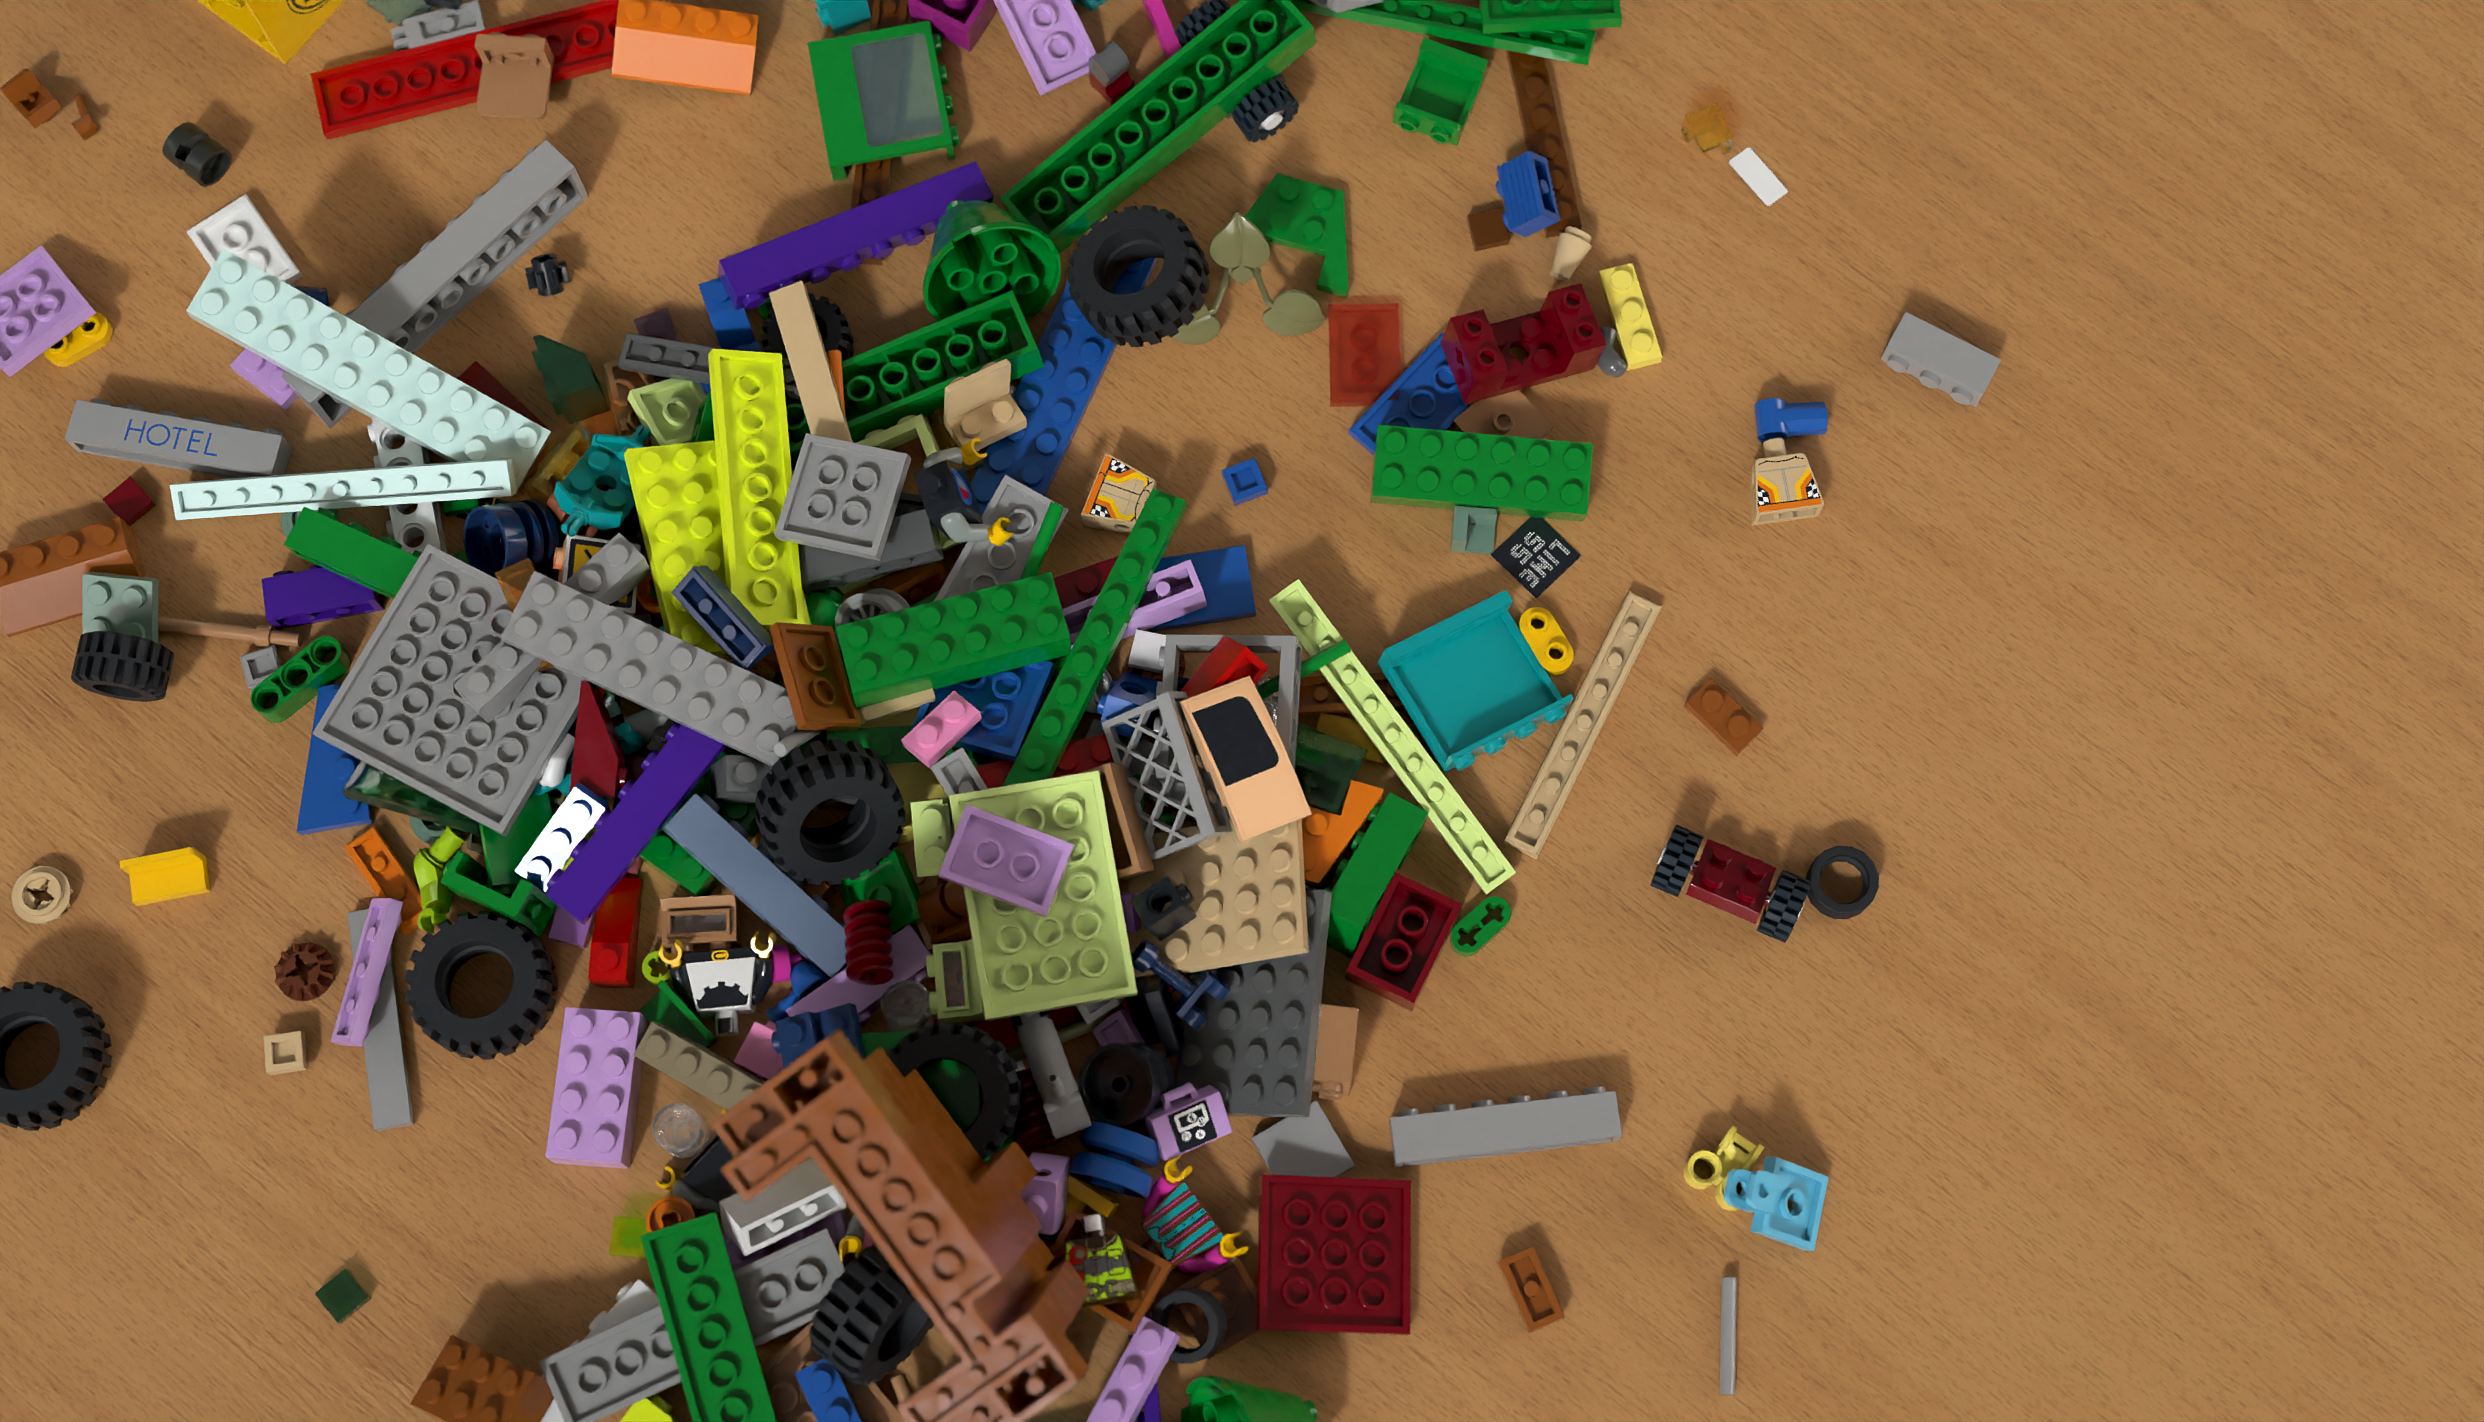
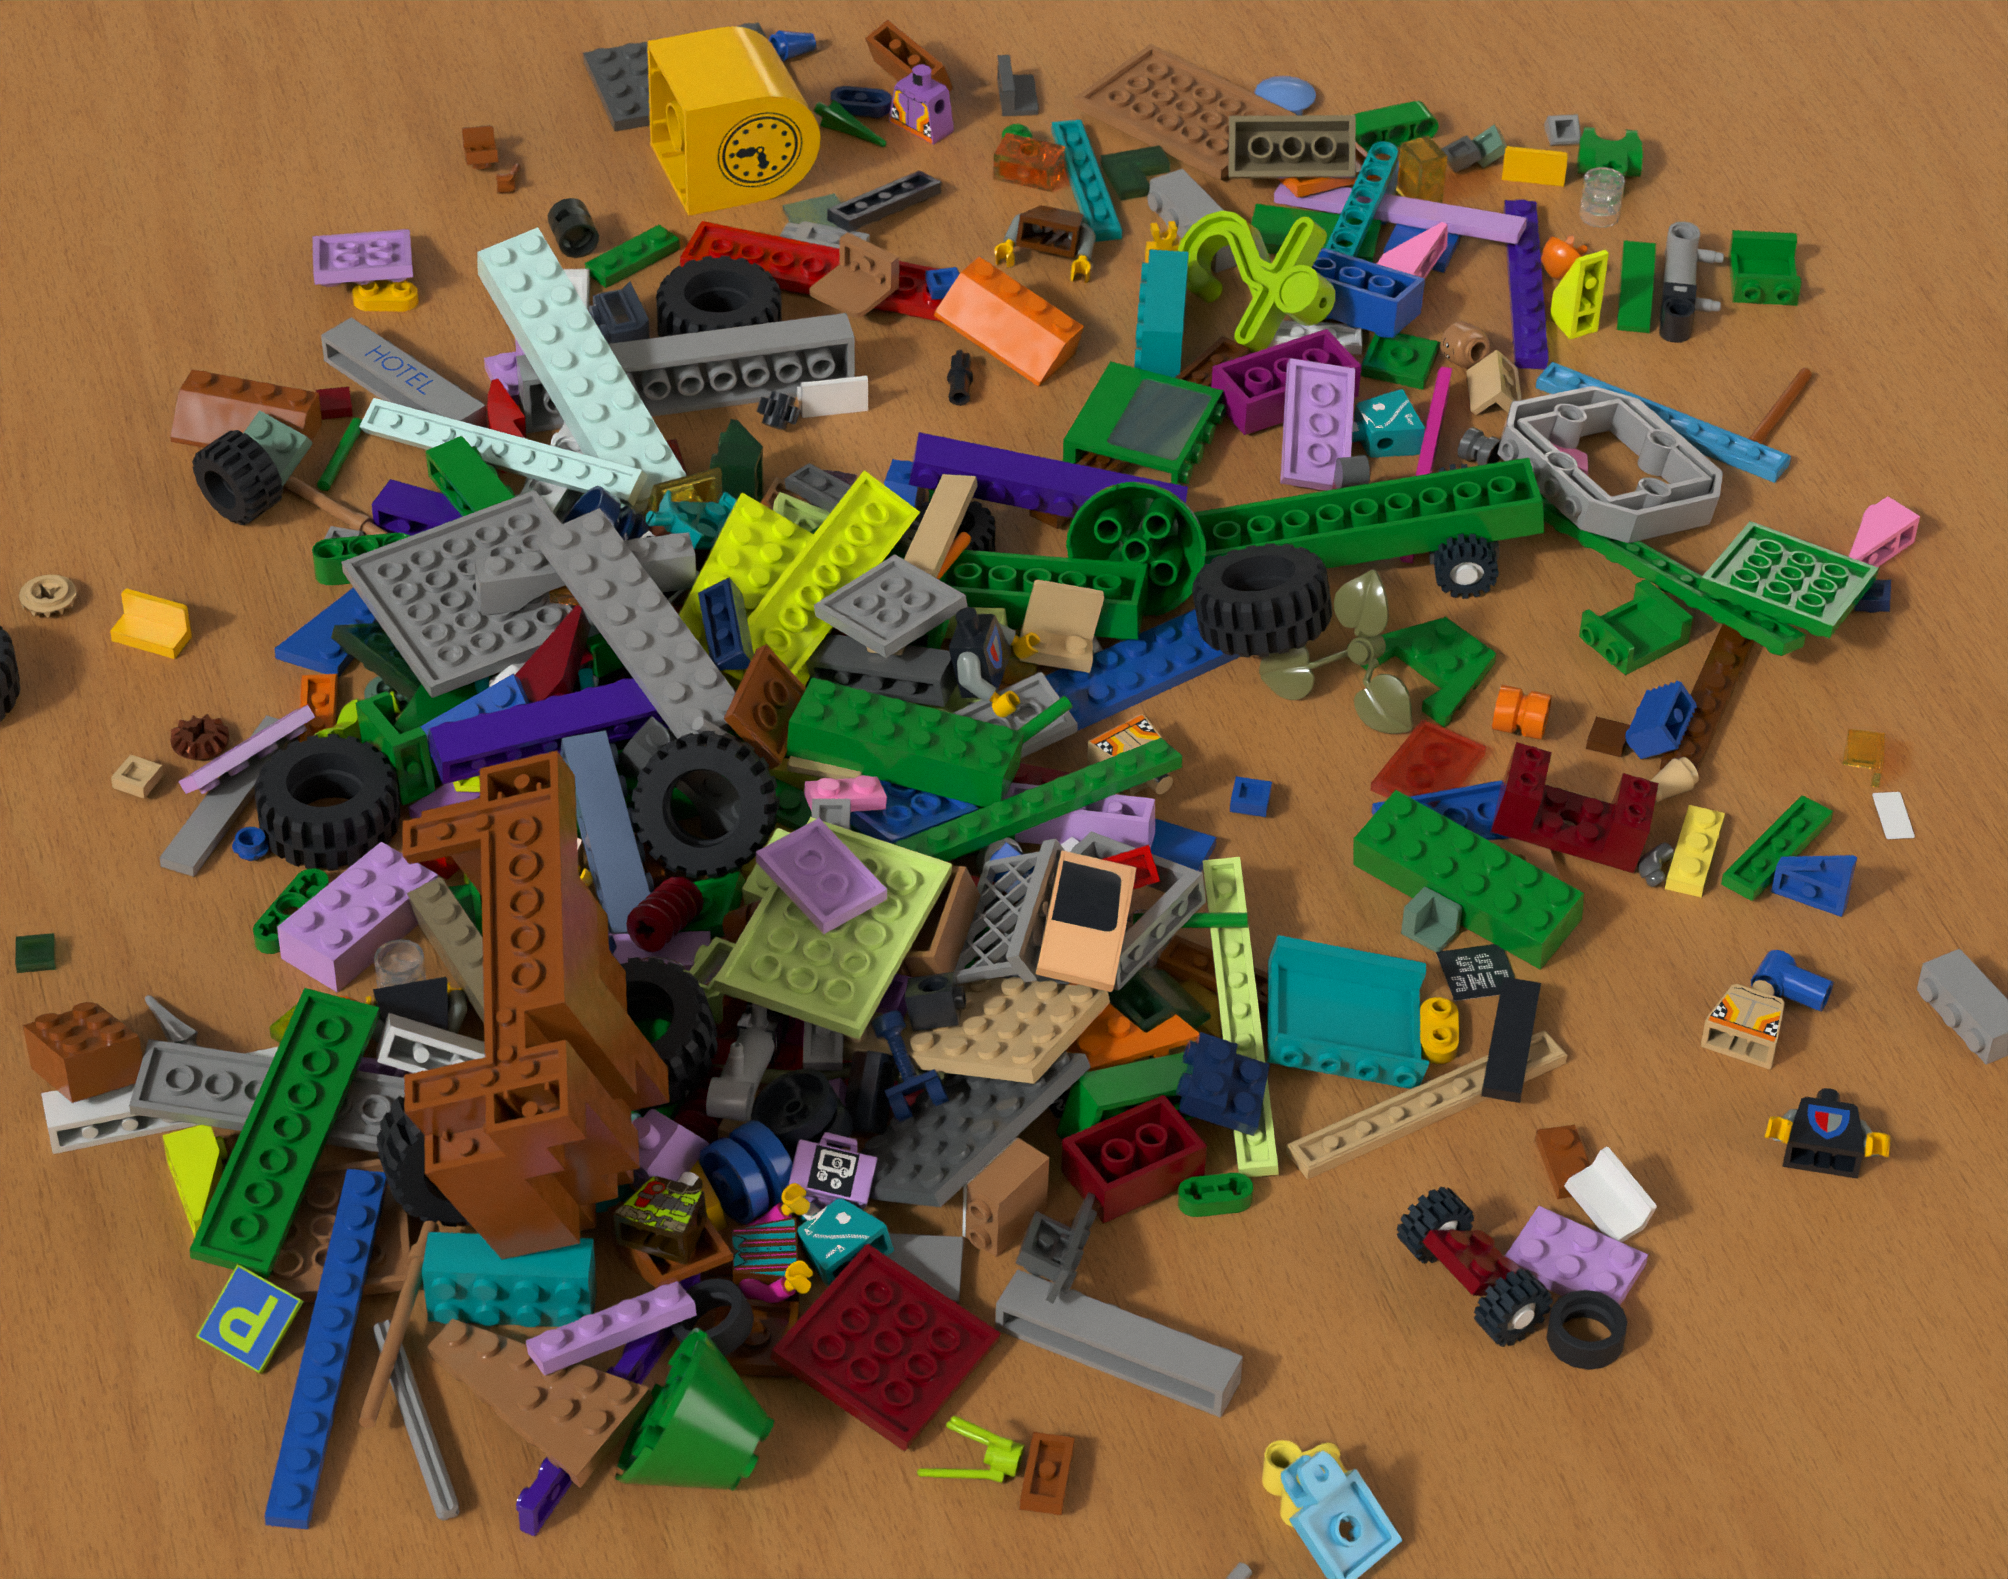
camera: 30 degrees right, 30 degrees down
(181, 561) = (340, 455): none -> green bar
(272, 150) = (632, 256): none -> green plate
(310, 438) = (503, 412): none -> red slope
(323, 244) = (620, 315): none -> sand blue window
(389, 155) = (716, 296): none -> black tyre
(432, 1060) = (250, 843): none -> blue plate
(517, 1084) = (292, 896): none -> green beam
(540, 1309) = (173, 1028): none -> light grey piece
(580, 223) = (833, 396): none -> white panel
(591, 27) = (940, 281): none -> blue tile
(677, 131) = (960, 378): none -> black axle
(1228, 1175) = (837, 1234): none -> teal torso
(1405, 1076) = (1056, 1249): none -> dark grey bracket
(1410, 251) = (1521, 712): none -> orange wheel
(1434, 831) = (1222, 1084): none -> dark blue plate
(1486, 1295) = (1001, 1454): none -> lime plant
(1614, 623) = (1511, 1040): none -> black tile
(1695, 276) = (1784, 838): none -> green plate
(1752, 301) = (1816, 880): none -> blue wing
(1786, 742) = (1611, 1197): none -> white panel
(1789, 815) = (1574, 1257): none -> lavender plate
(1910, 569) = (1826, 1136): none -> black torso

